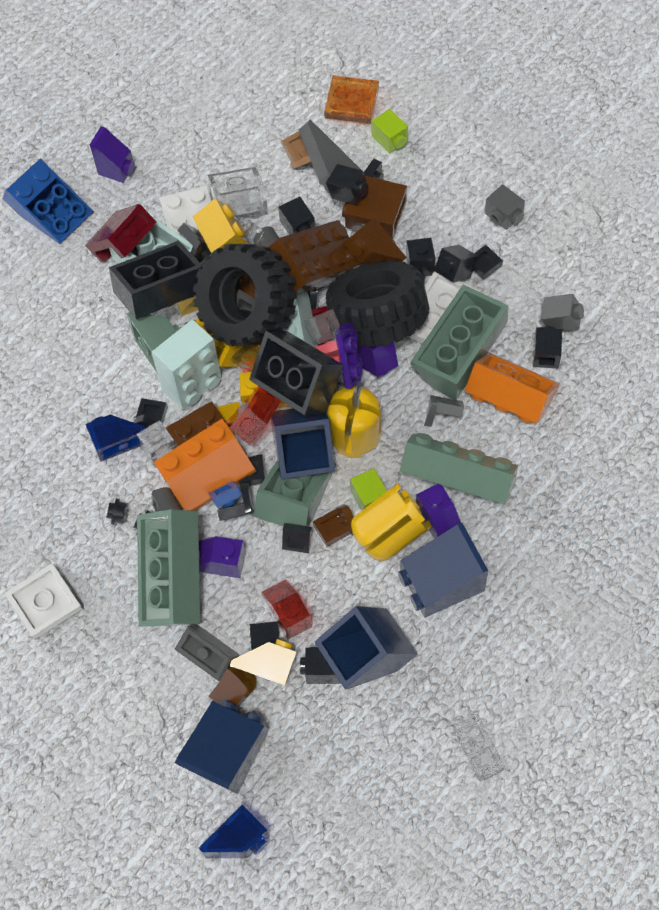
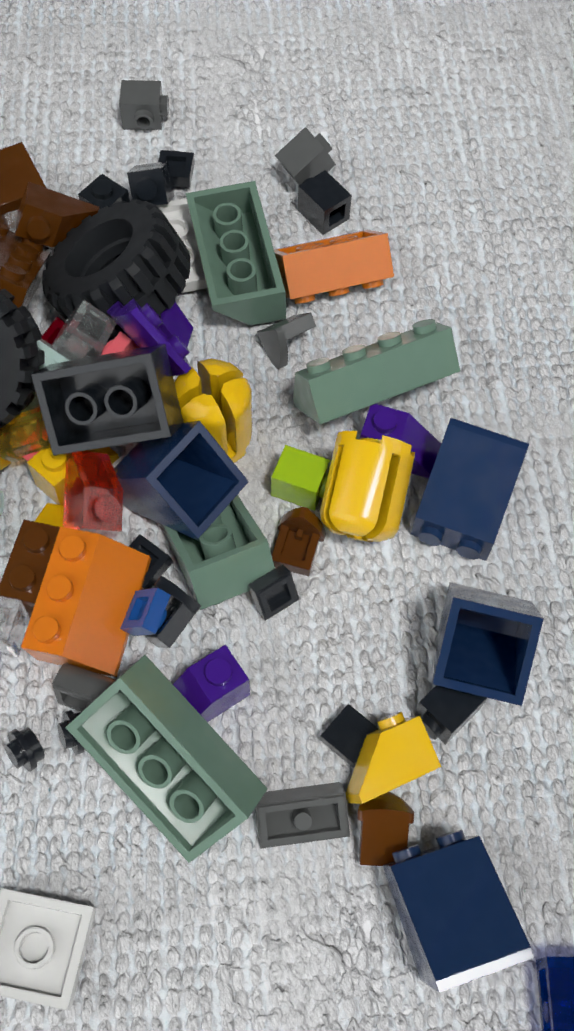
camera: 50 degrees left, 0 degrees up
(287, 609) = (342, 677): clear red slope -> none

